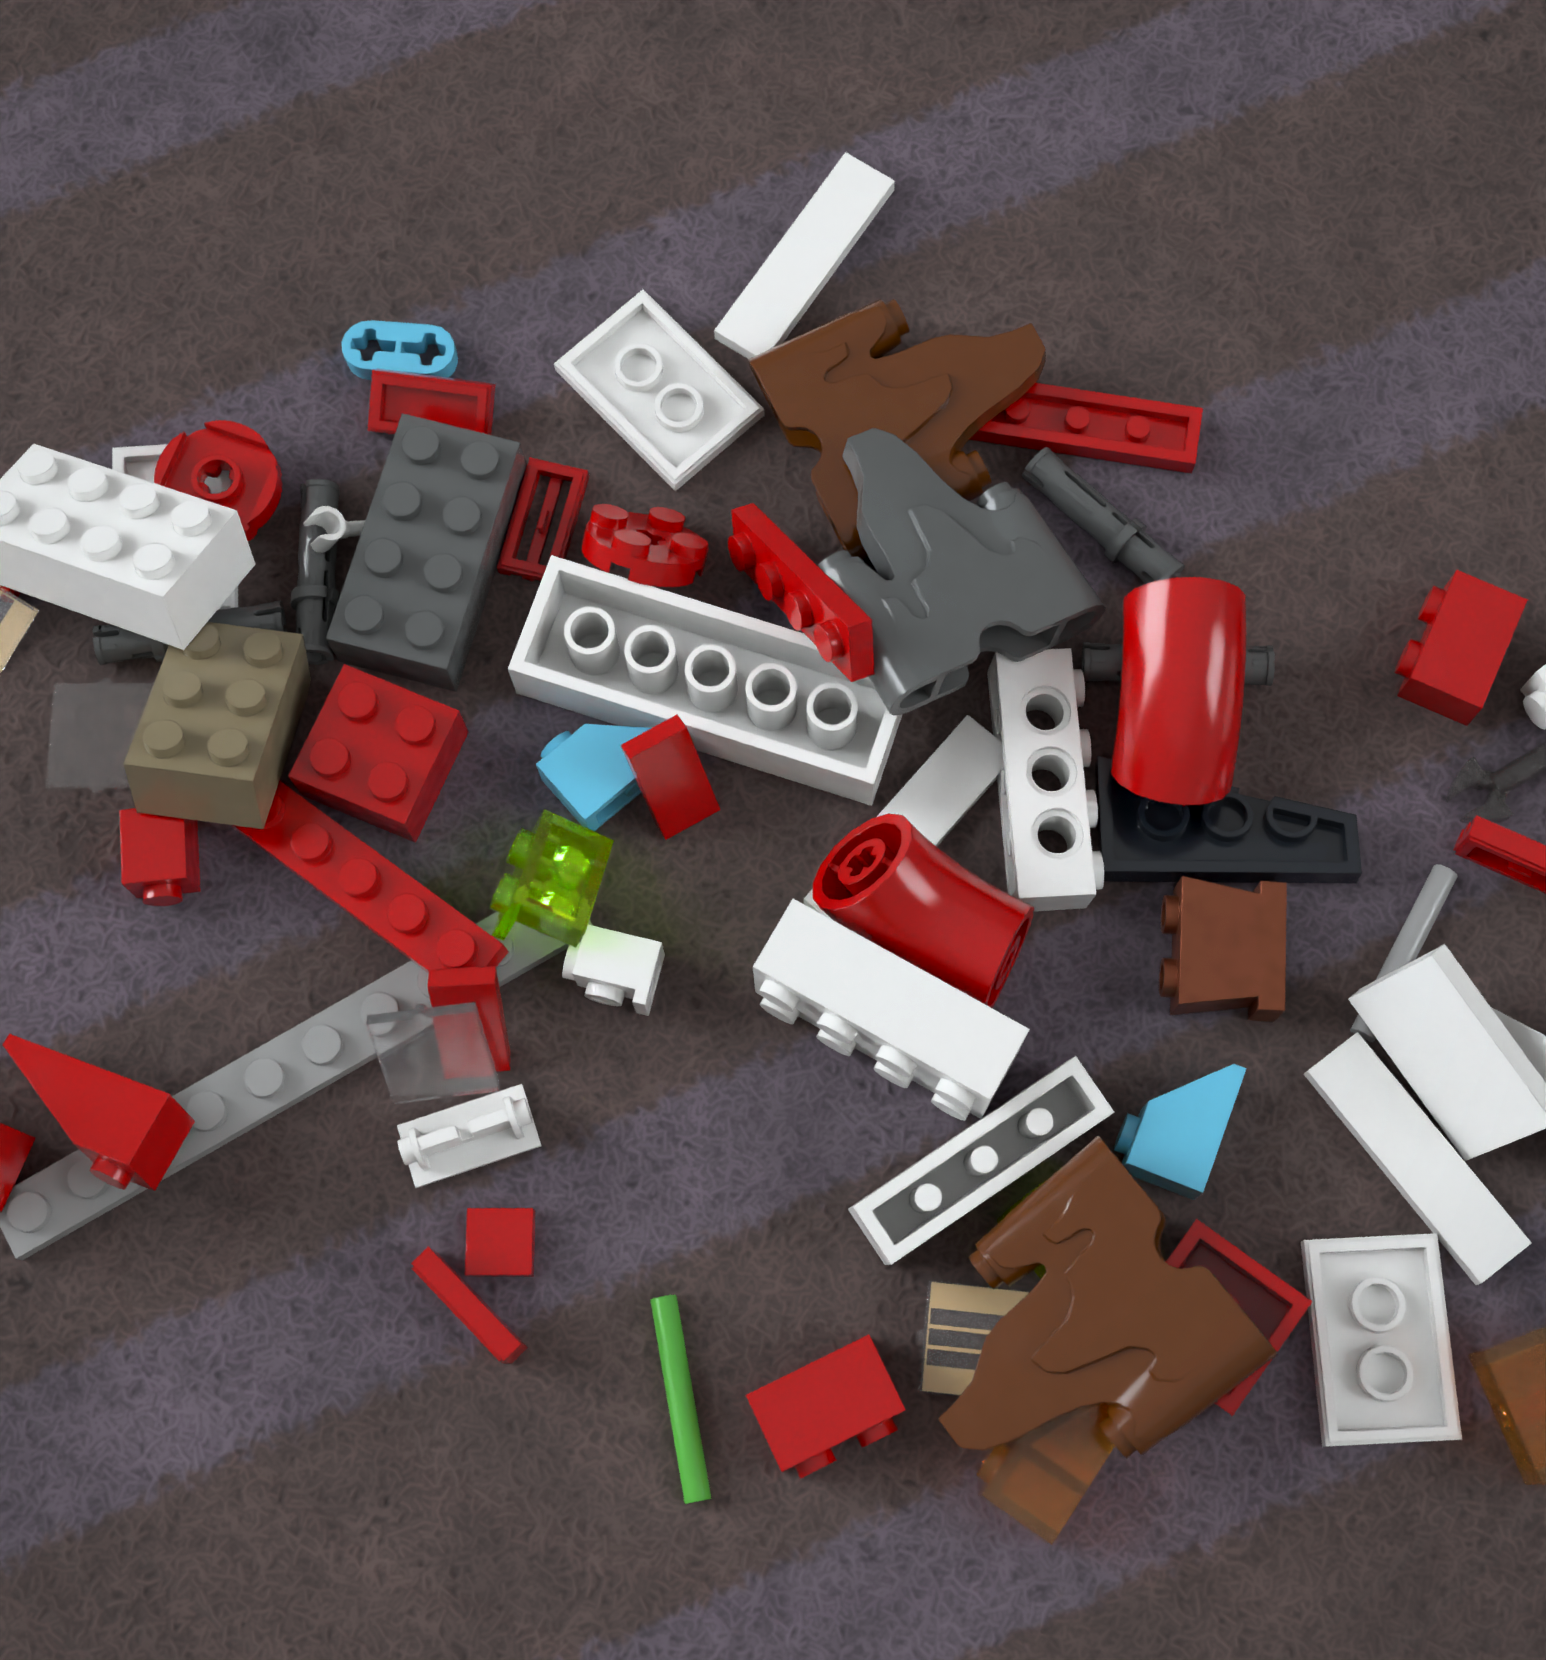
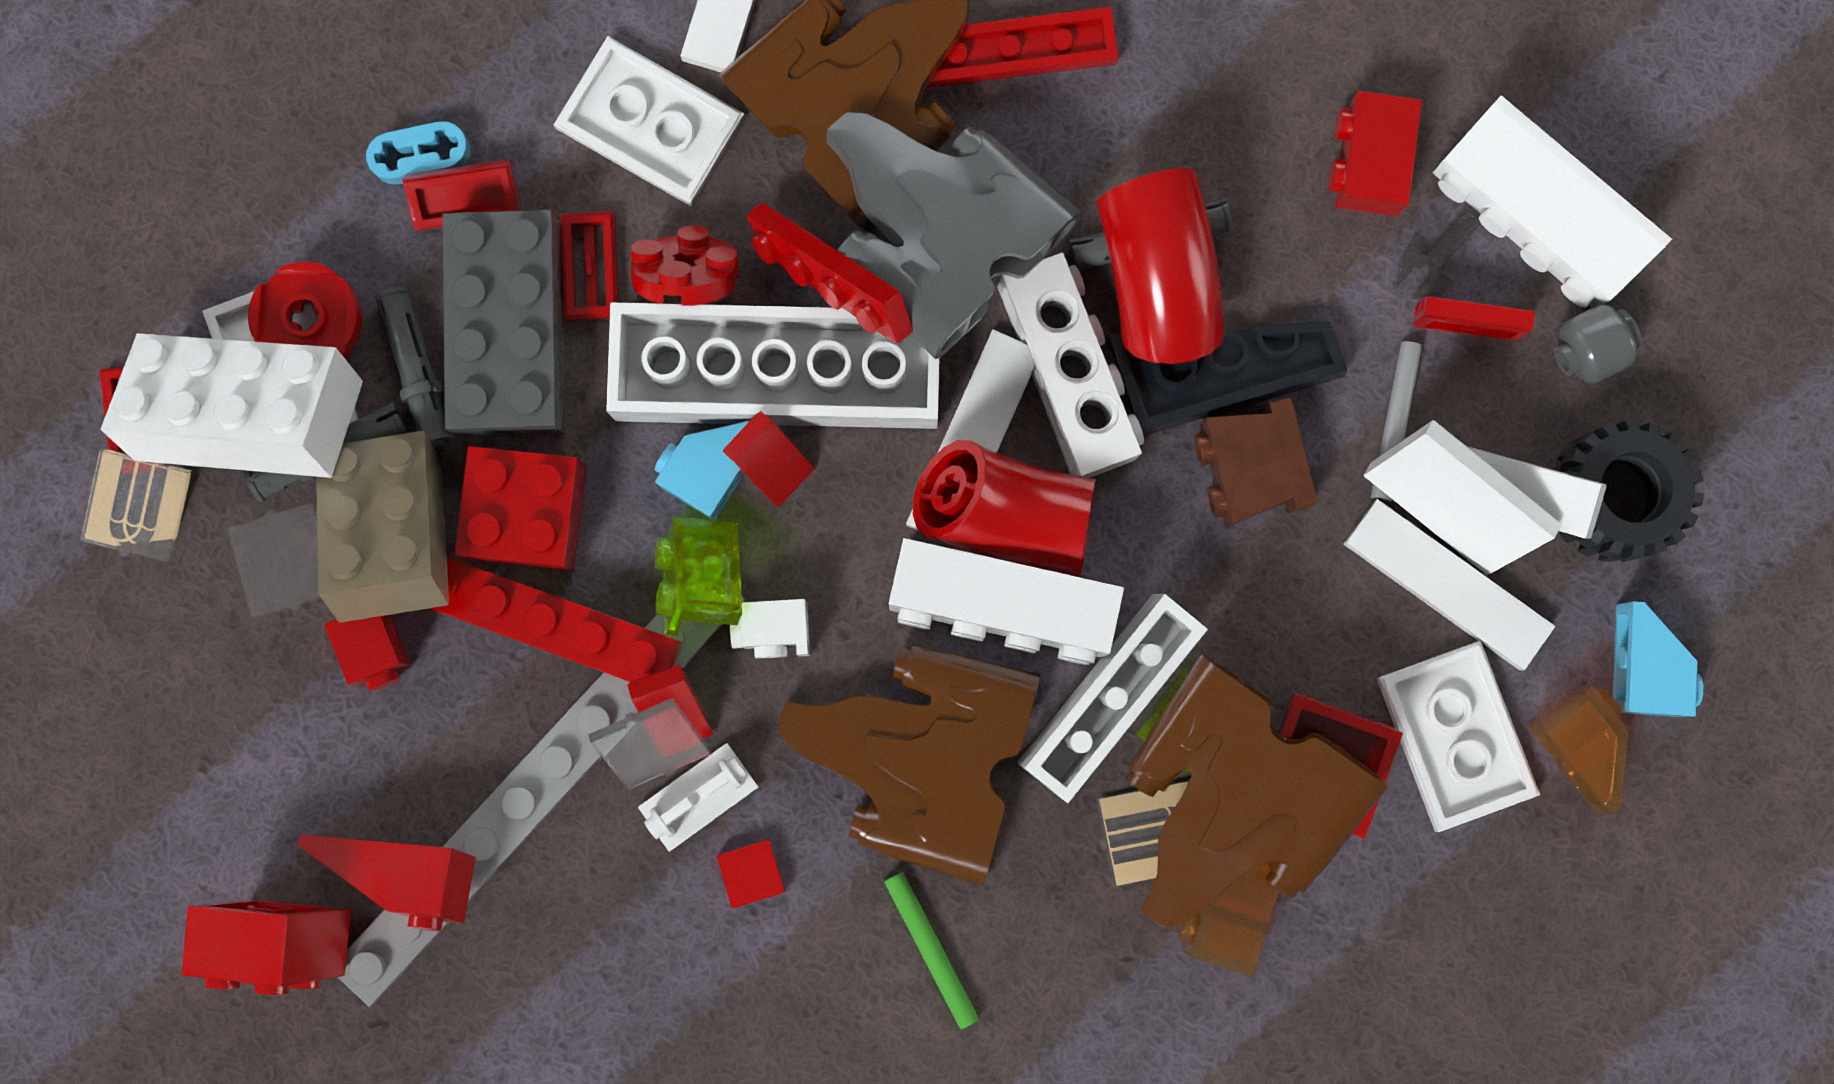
camera: 20 degrees left, 10 degrees up
(335, 526) = (418, 326): white hand -> none
(468, 1306) = (743, 933): red tile -> none
(742, 1172) = (924, 761): none -> reddish brown rock
(826, 1405) = (1048, 924): red brick -> none
(1090, 510) = (1046, 125): dark grey pin -> none
(1180, 1133) = (1261, 624): medium azure slope -> none

